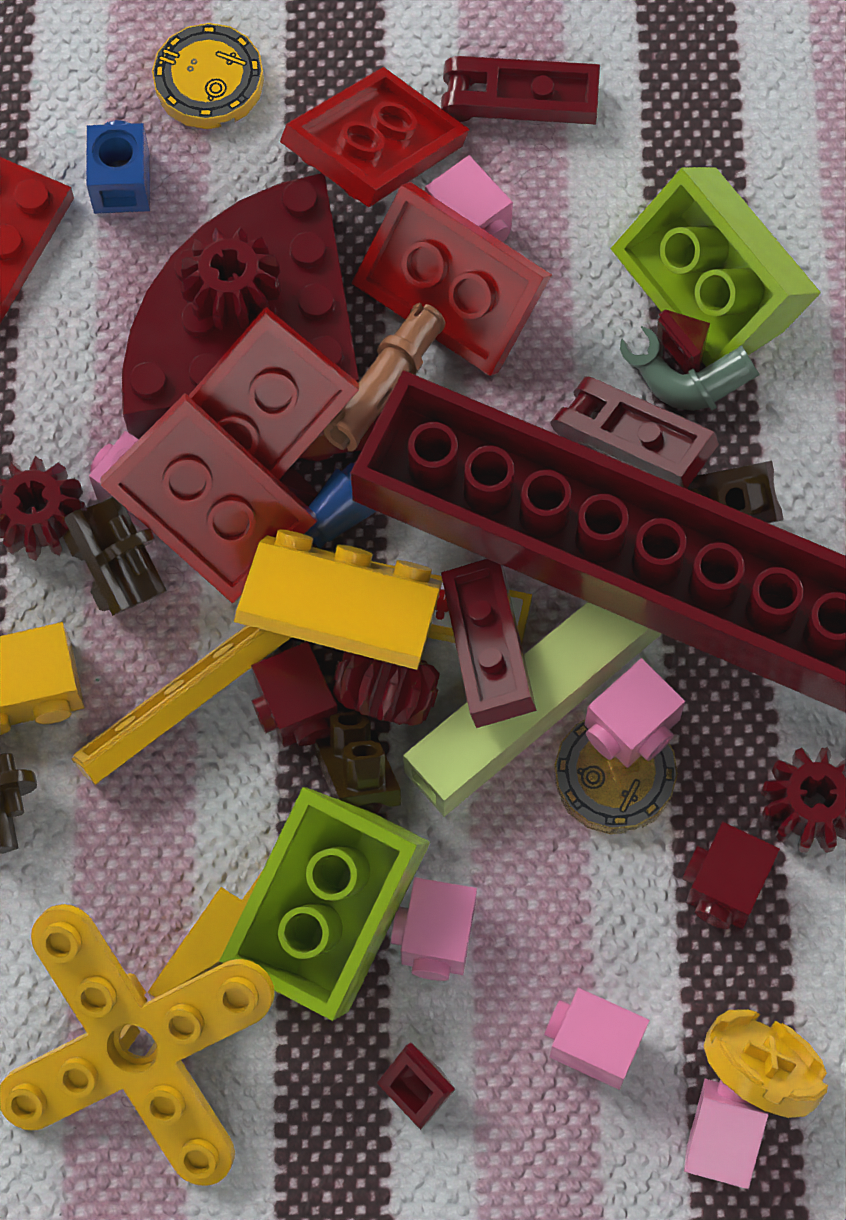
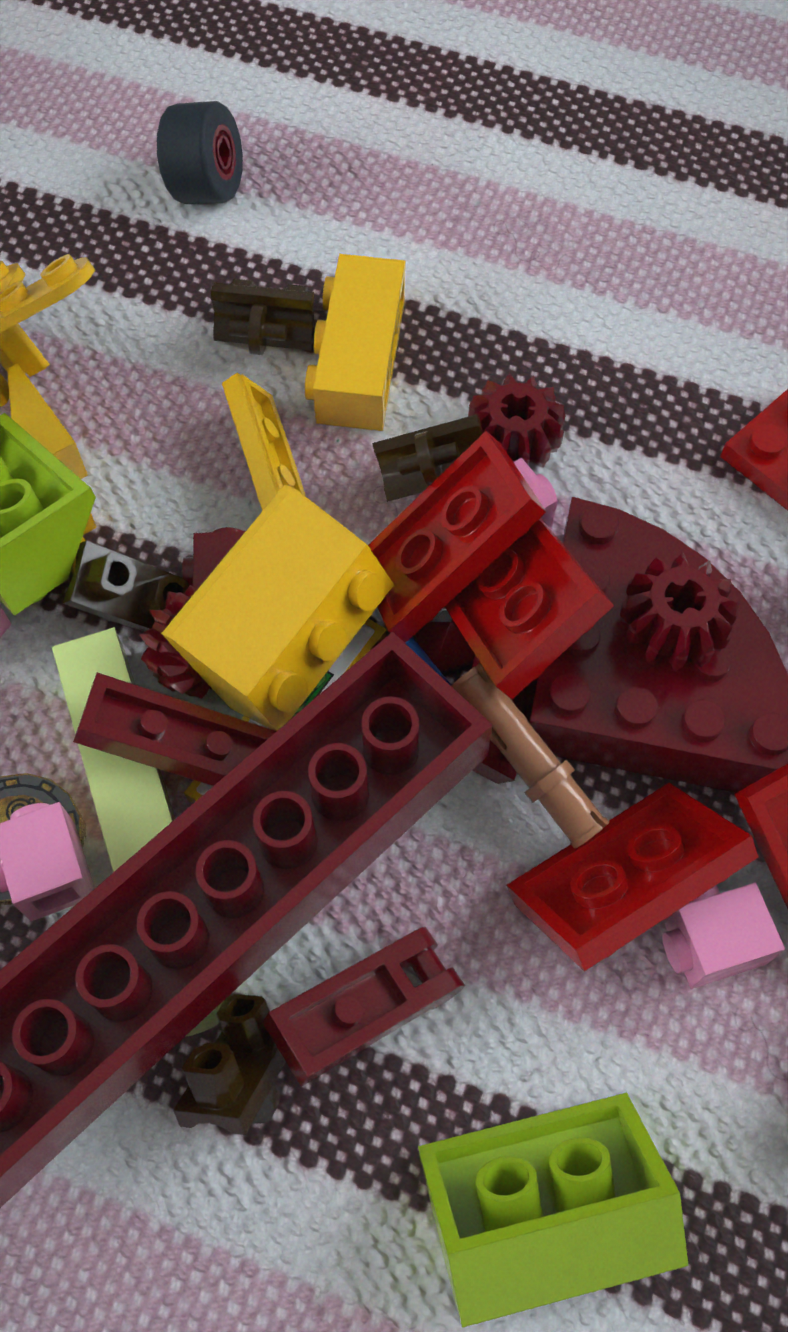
camera: 110 degrees right, 5 degrees down
(683, 339) = (464, 1120): dark red slope -> none
(694, 389) = (402, 1111): sand green piece -> none

